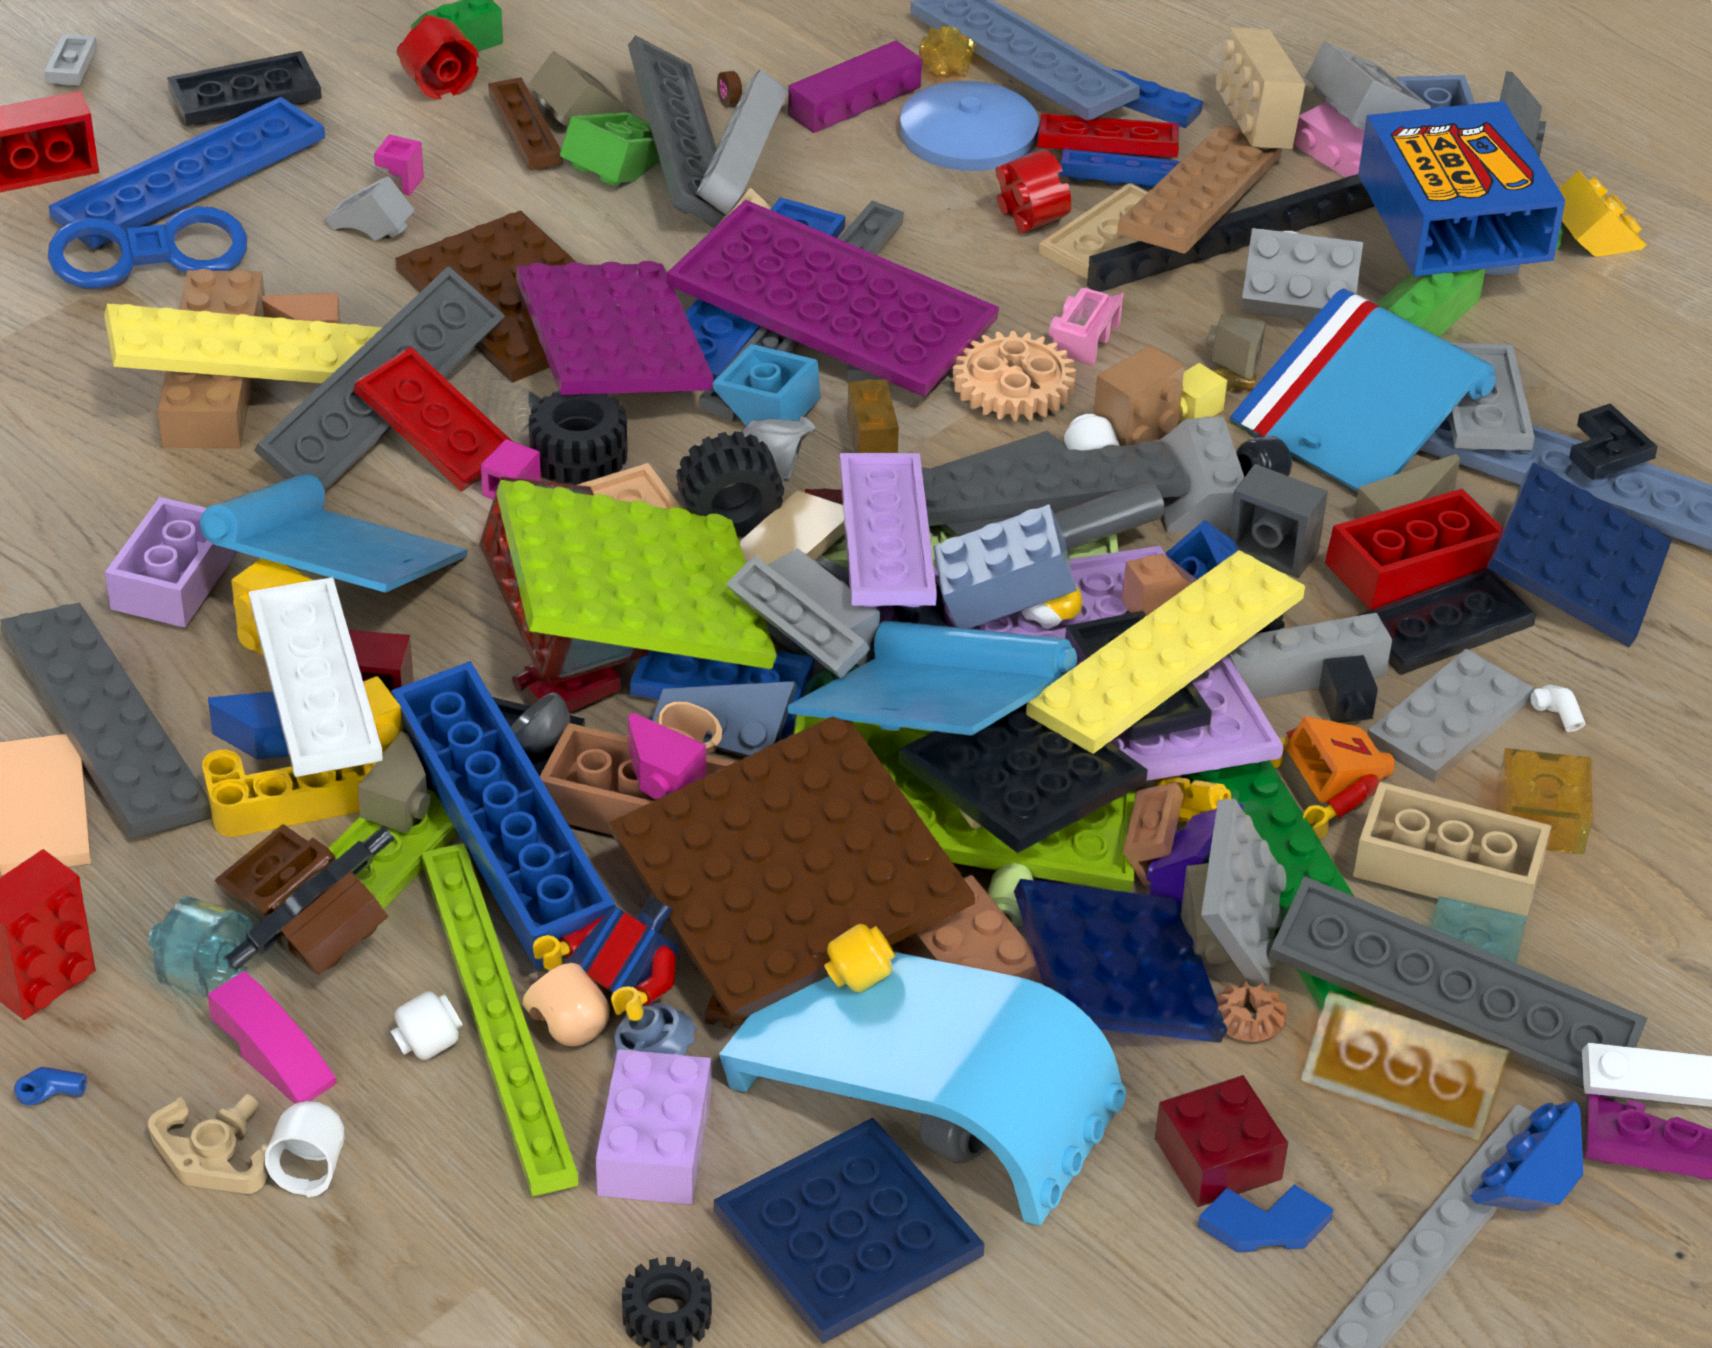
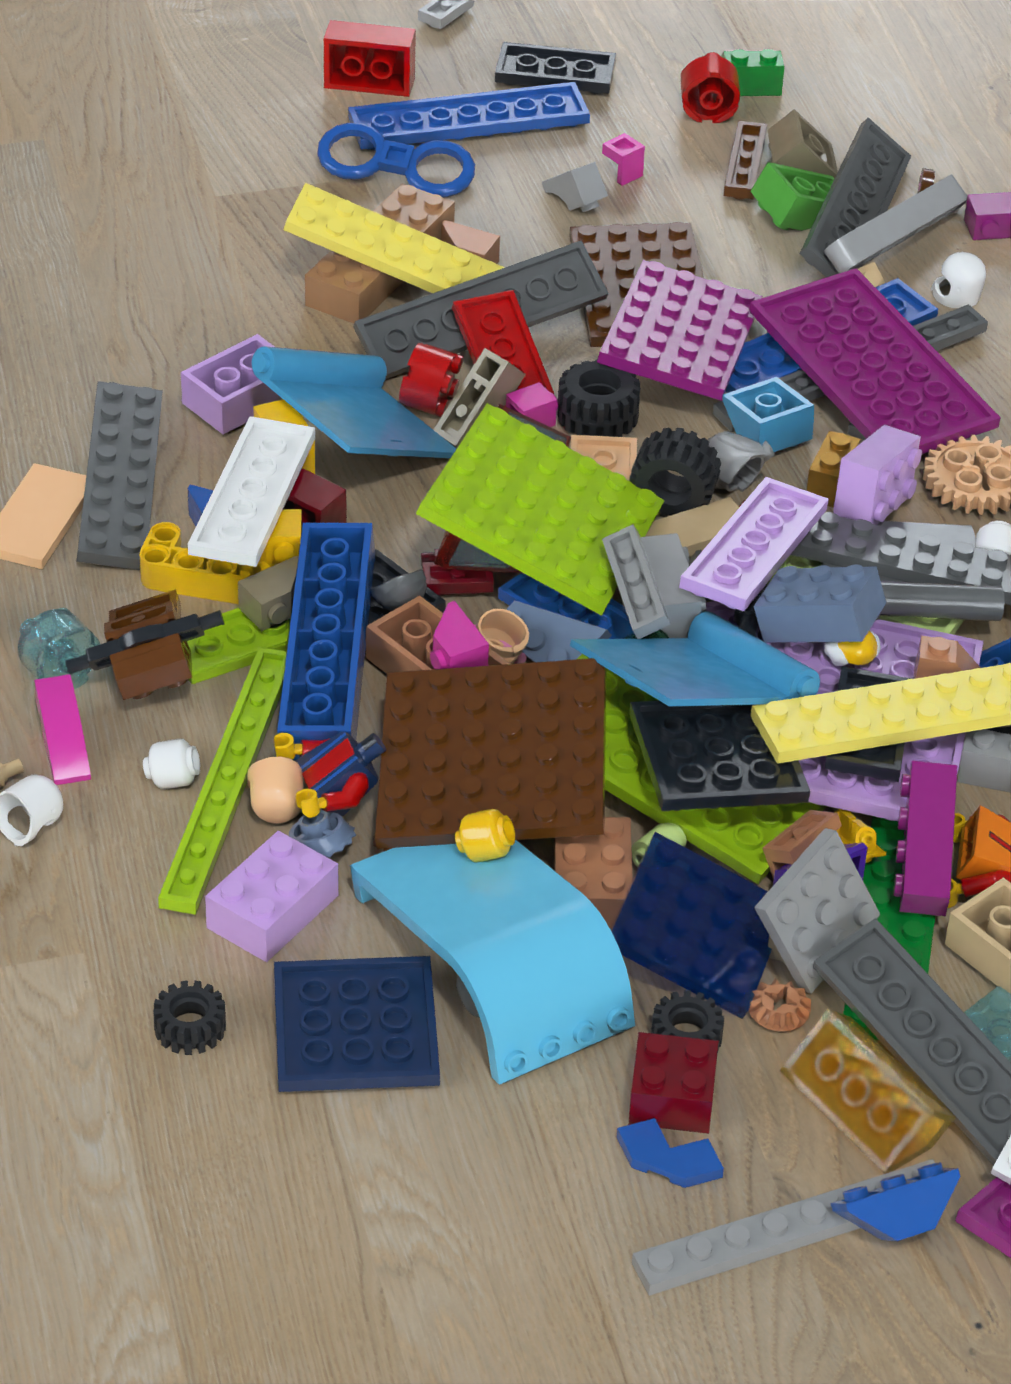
camera: 30 degrees right, 0 degrees up
(385, 479) = (430, 379): none -> red brick
(452, 480) = (486, 383): none -> dark tan slope
(852, 170) = (966, 277): none -> white helmet
(939, 409) = (878, 475): none -> lavender brick
(1180, 1056) = (688, 1010): none -> black tyre
(1284, 771) = (927, 838): none -> magenta brick

